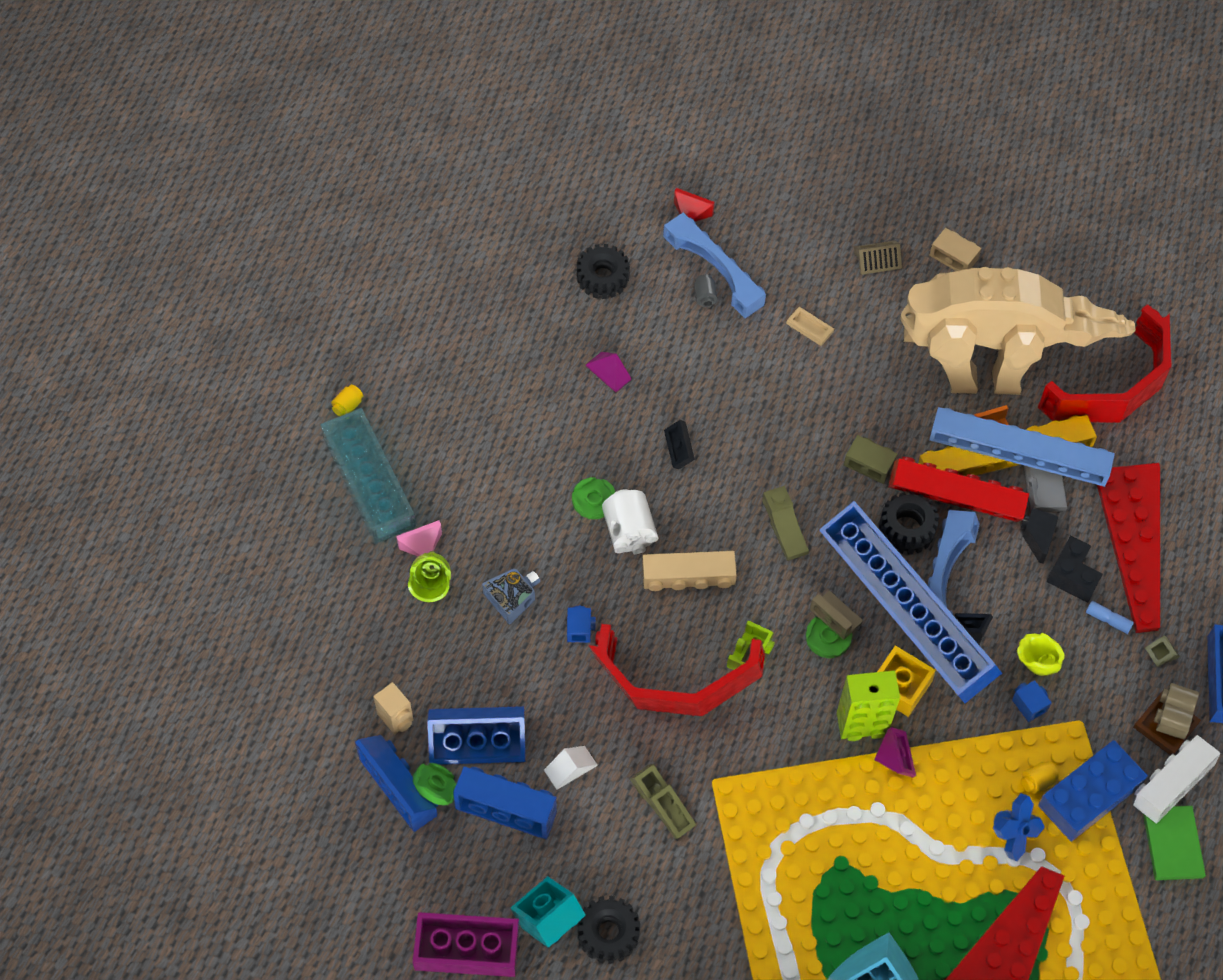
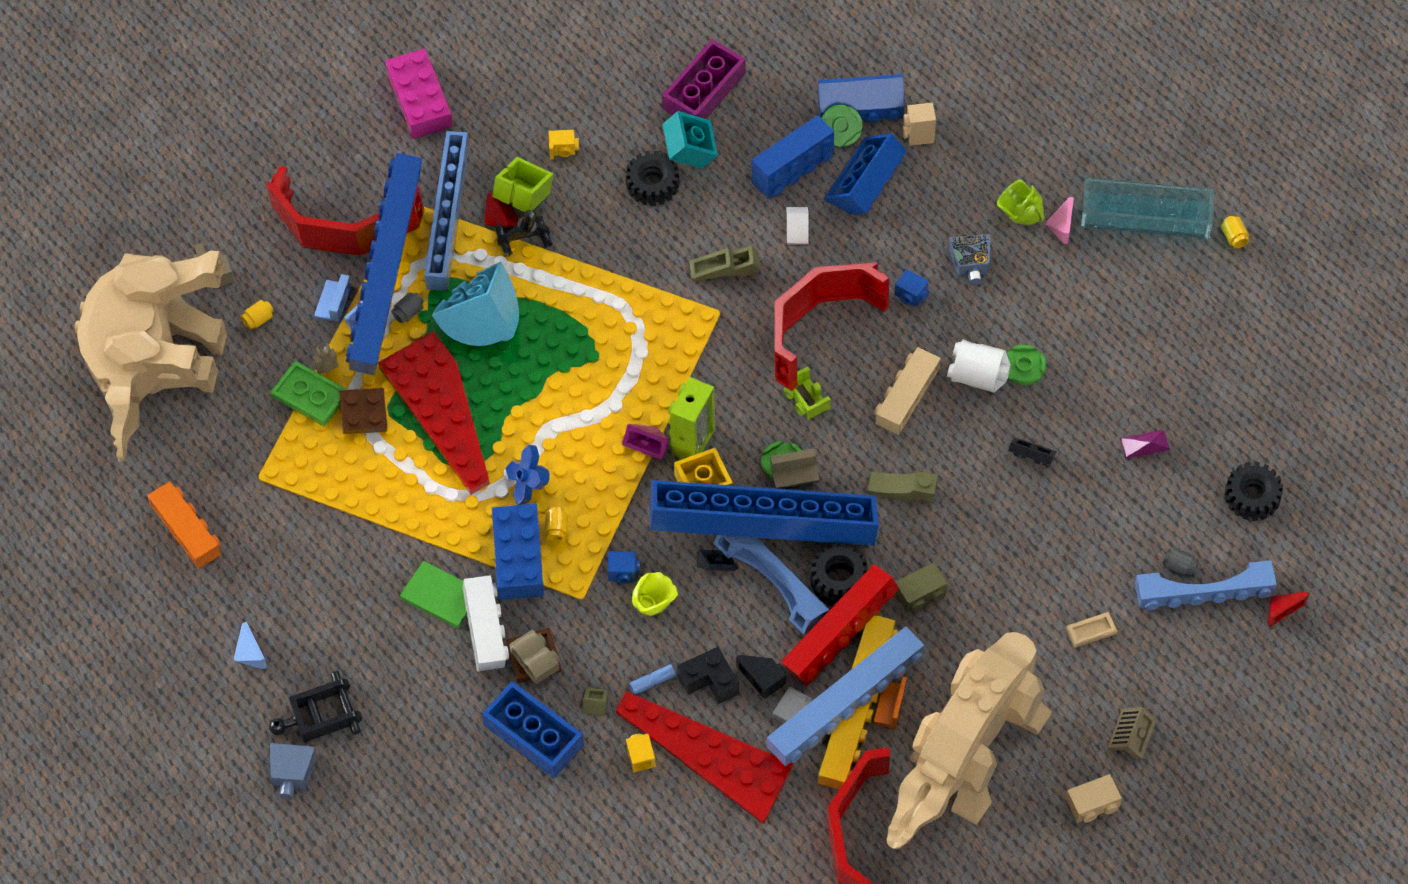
camera: 125 degrees right, 0 degrees up
(1181, 584) = (640, 752): none -> yellow brick

